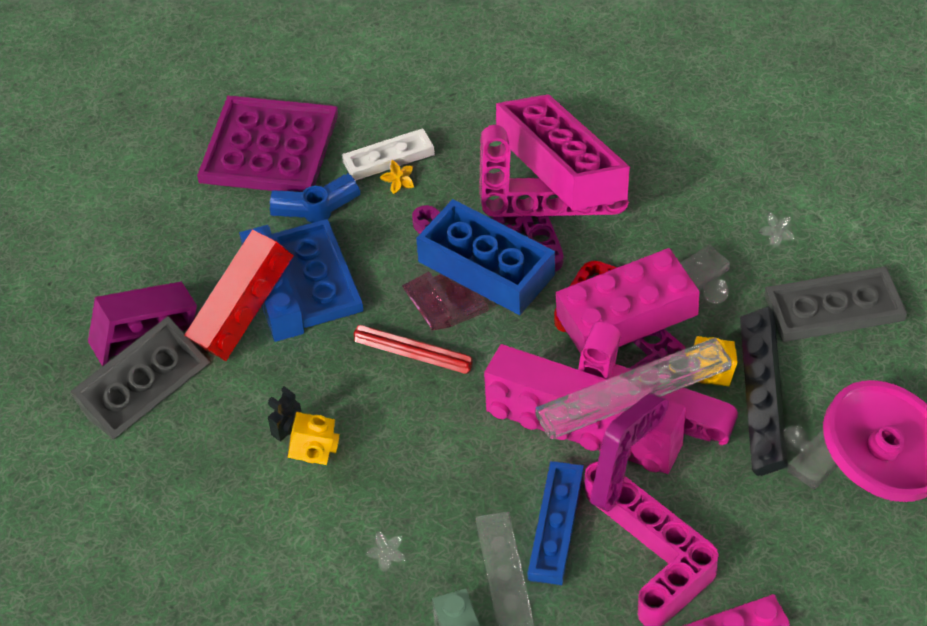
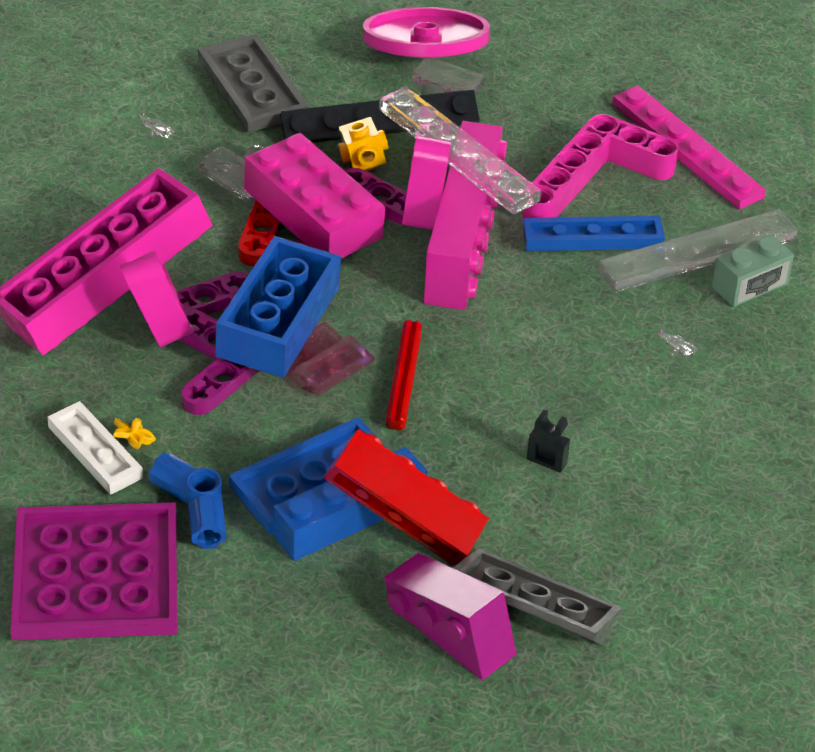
camera: 110 degrees left, 5 degrees down
(312, 438) = (578, 409): yellow brick -> none
(616, 447) = (538, 131): magenta beam -> none

